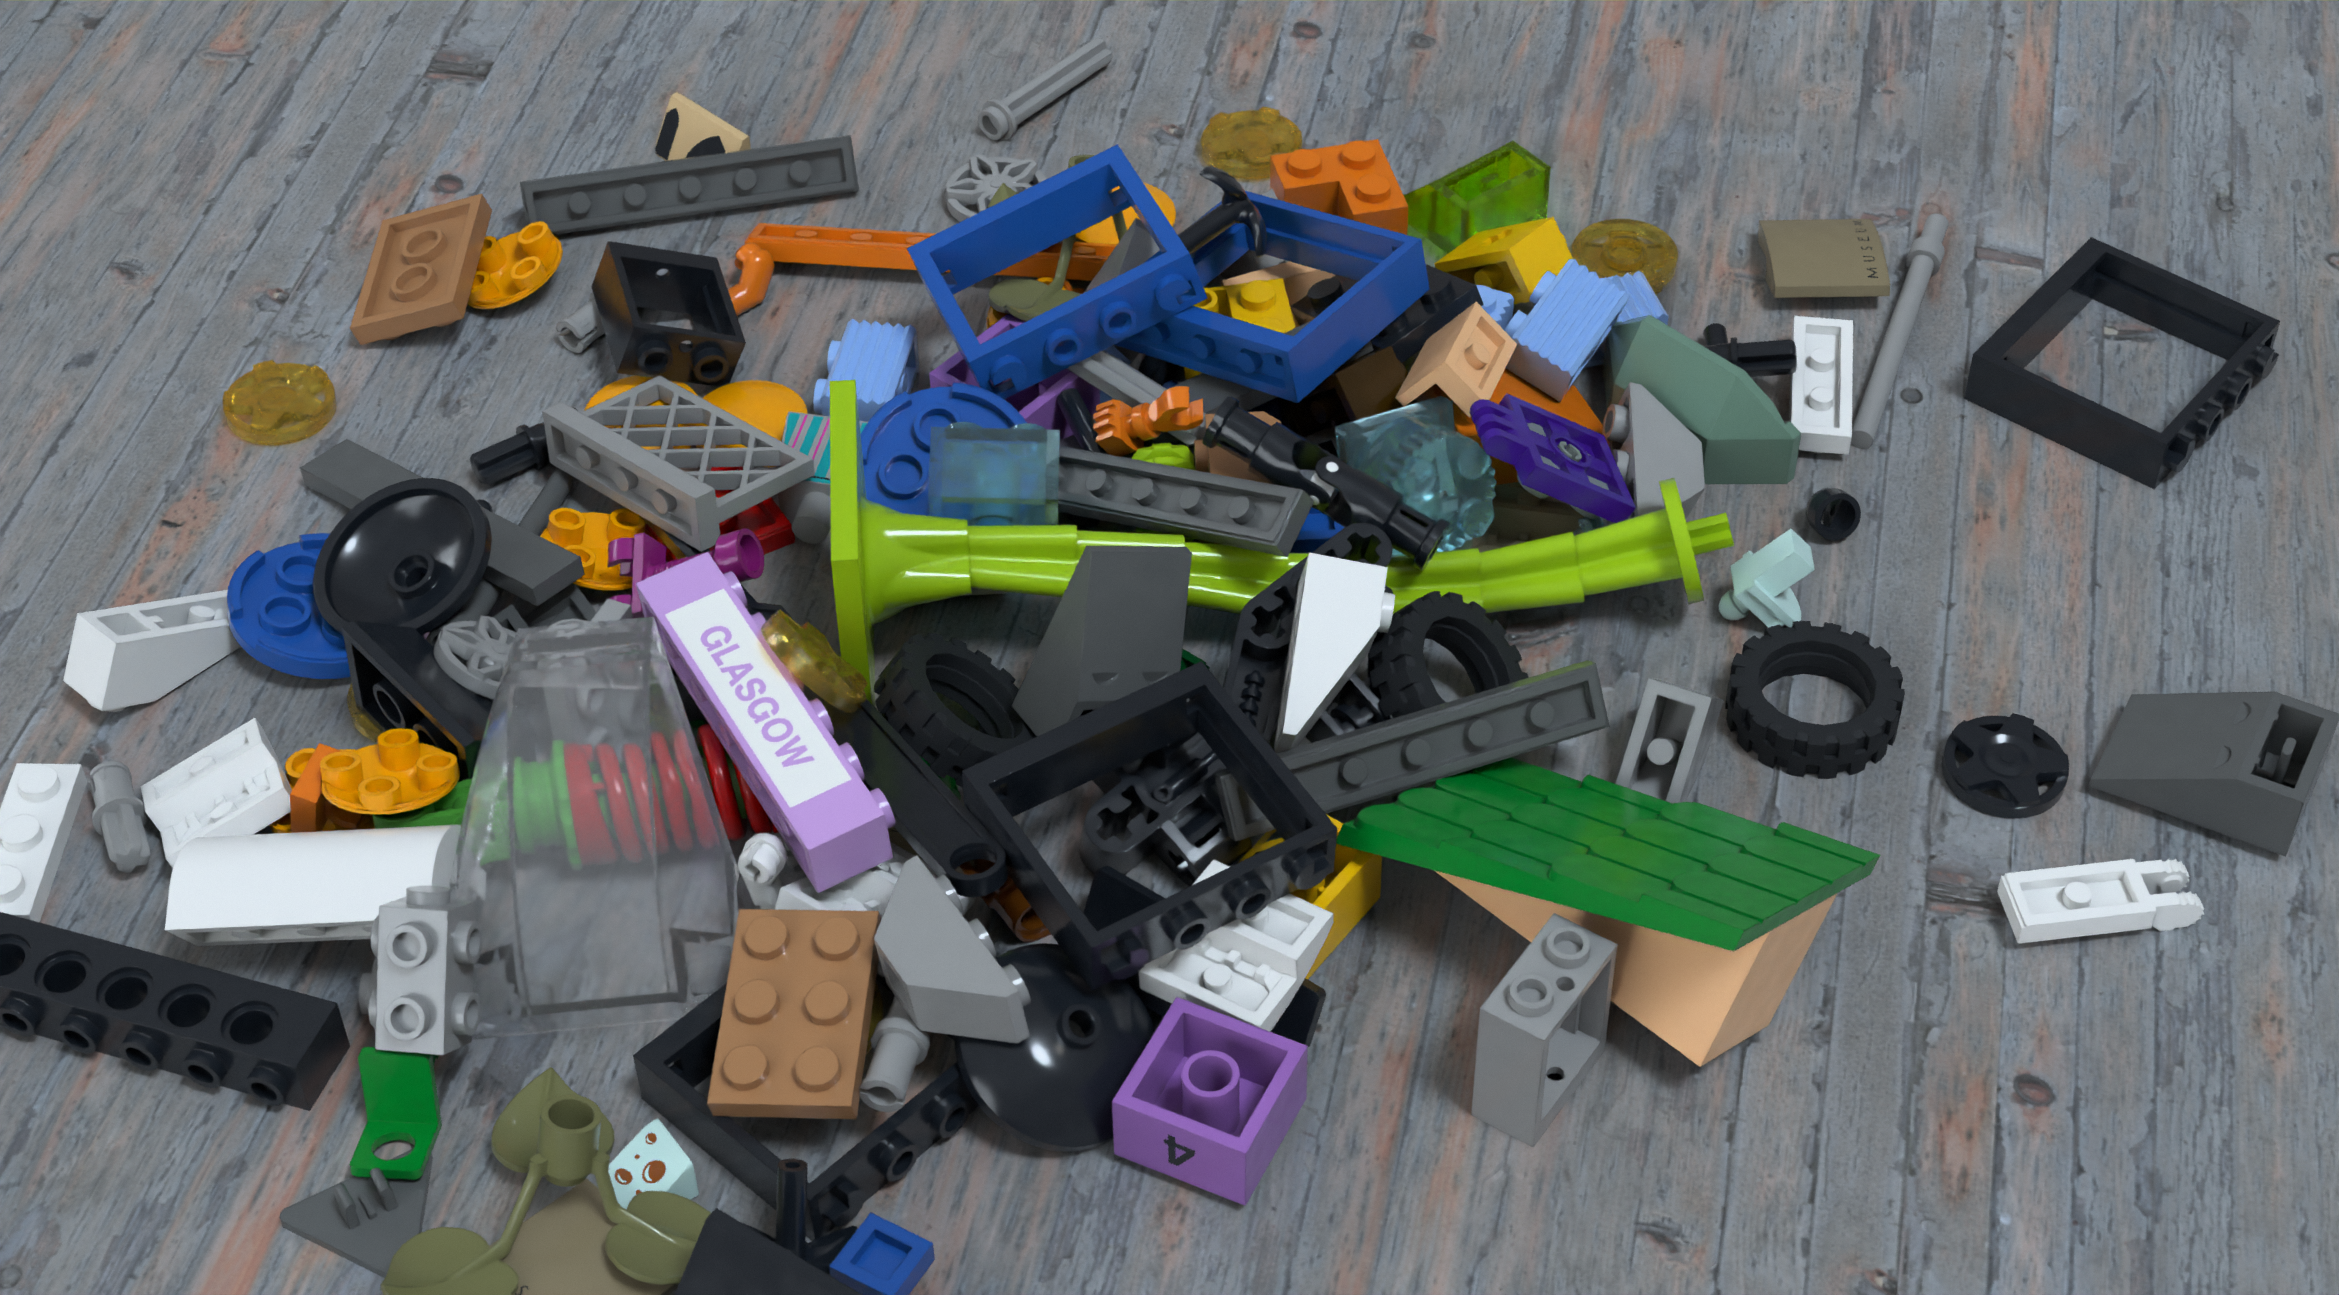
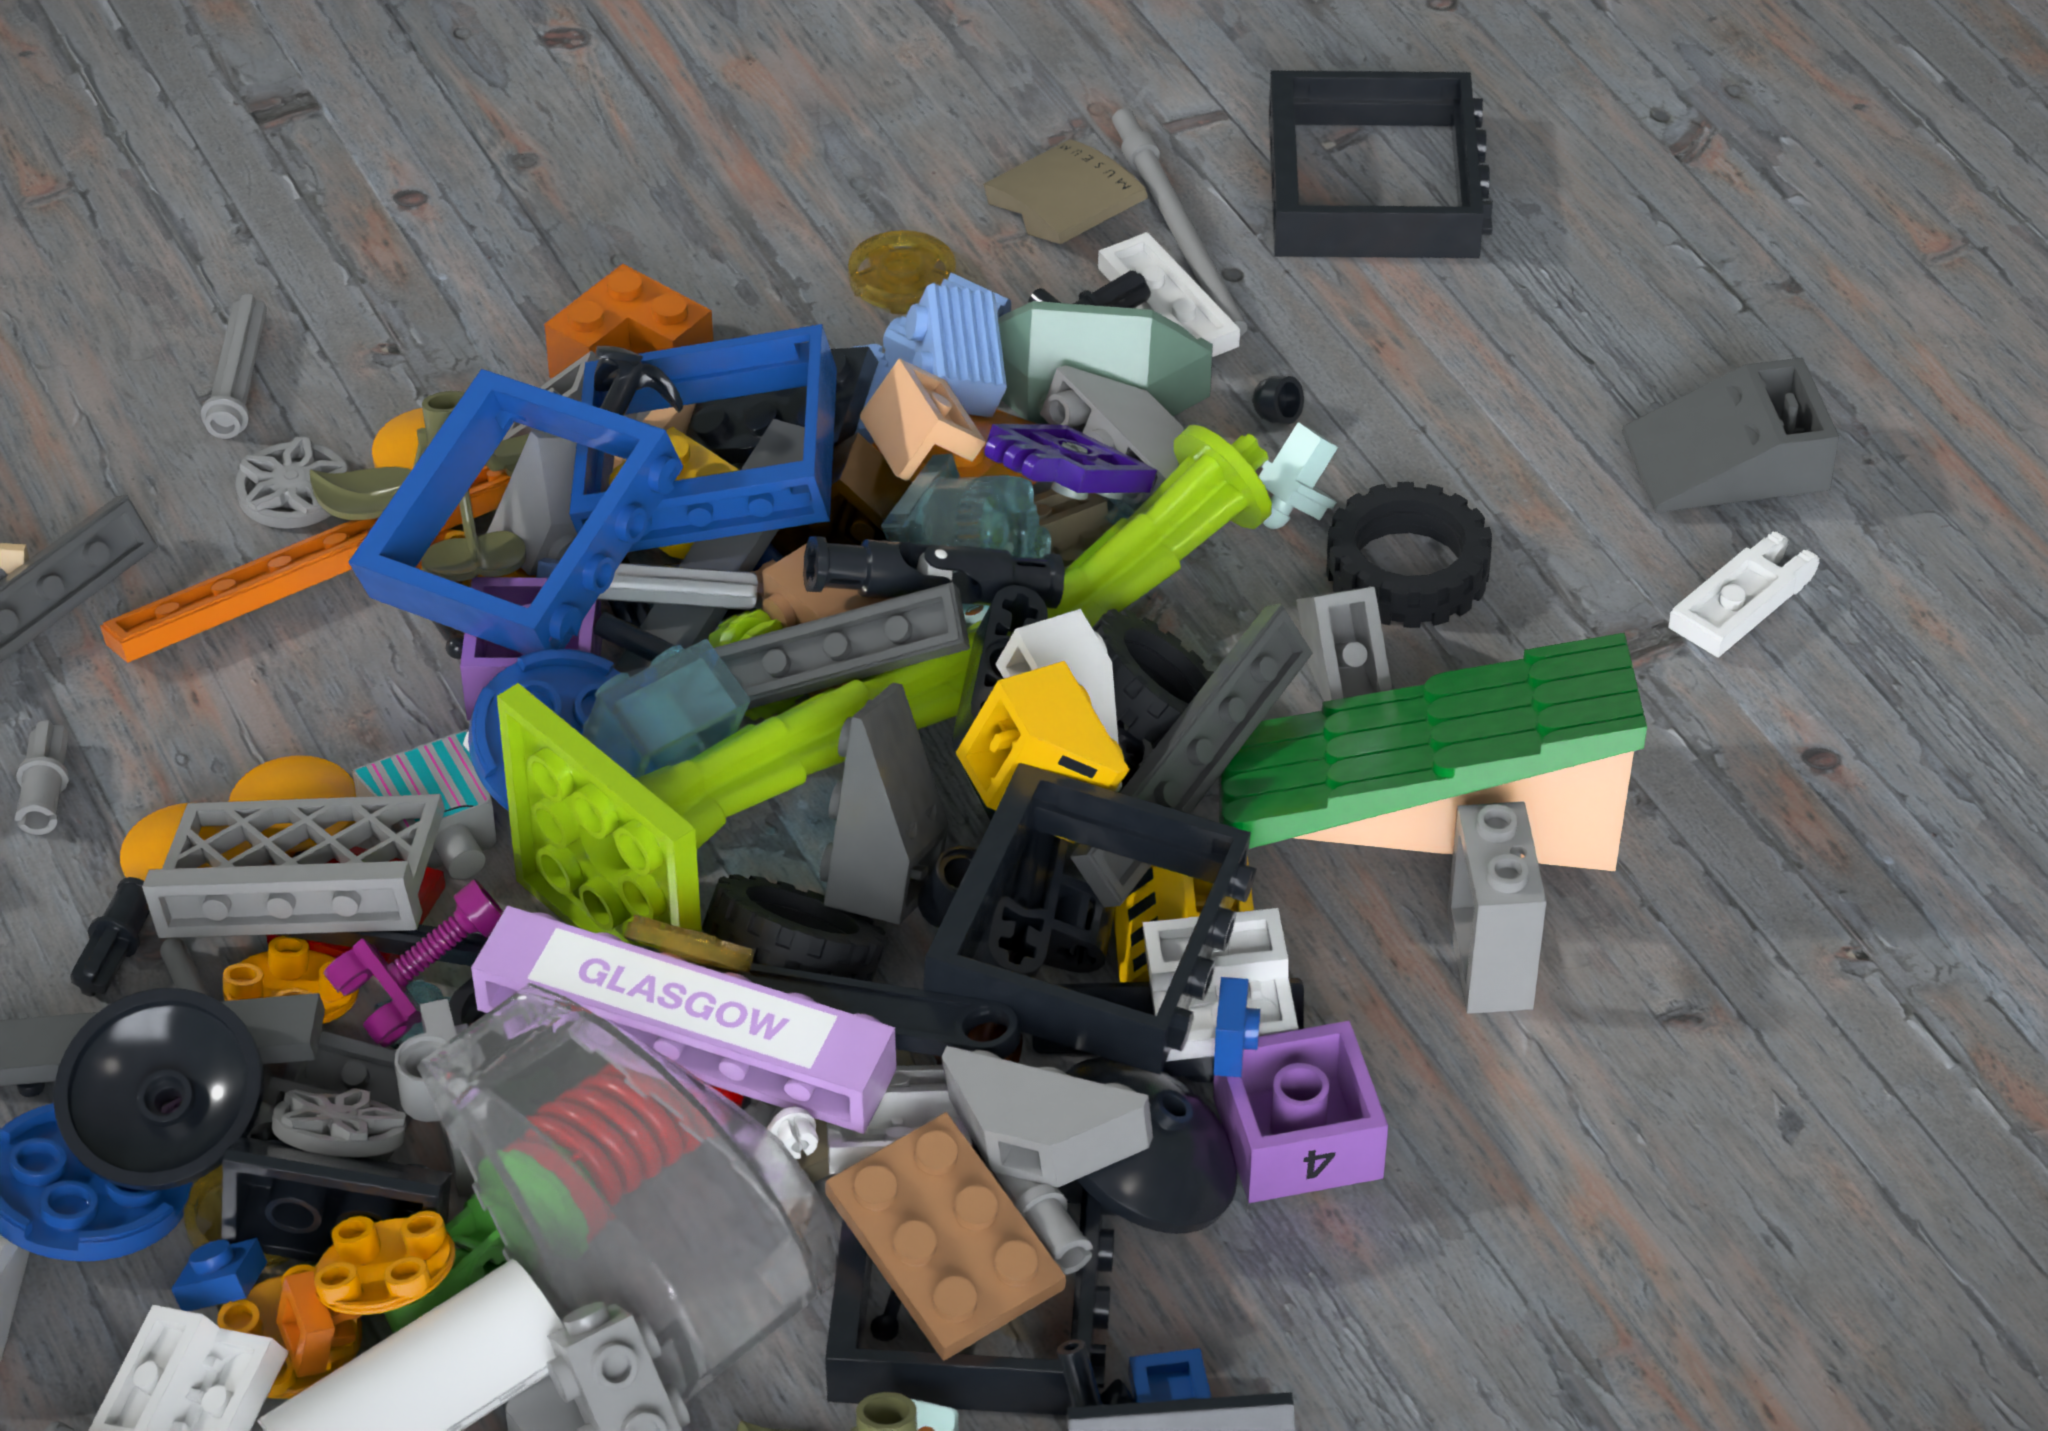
camera: 40 degrees left, 0 degrees up
(327, 722) = (219, 1274): none -> blue plate
(690, 286) = (84, 745): black window -> none
(757, 270) = (159, 686): orange arm -> none
(878, 358) = (370, 703): light blue brick -> none
(1125, 428) = (732, 583): orange piece -> none
(1182, 986) = (1235, 1027): none -> blue plate
(1249, 139) = (475, 320): clear yellow wheel -> none
(1249, 647) = (1043, 723): none -> yellow slope
(1480, 195) = (747, 272): clear neon green slope -> none
(1509, 257) = (853, 306): yellow brick -> none
(2008, 758) = (1583, 525): black wheel -> none

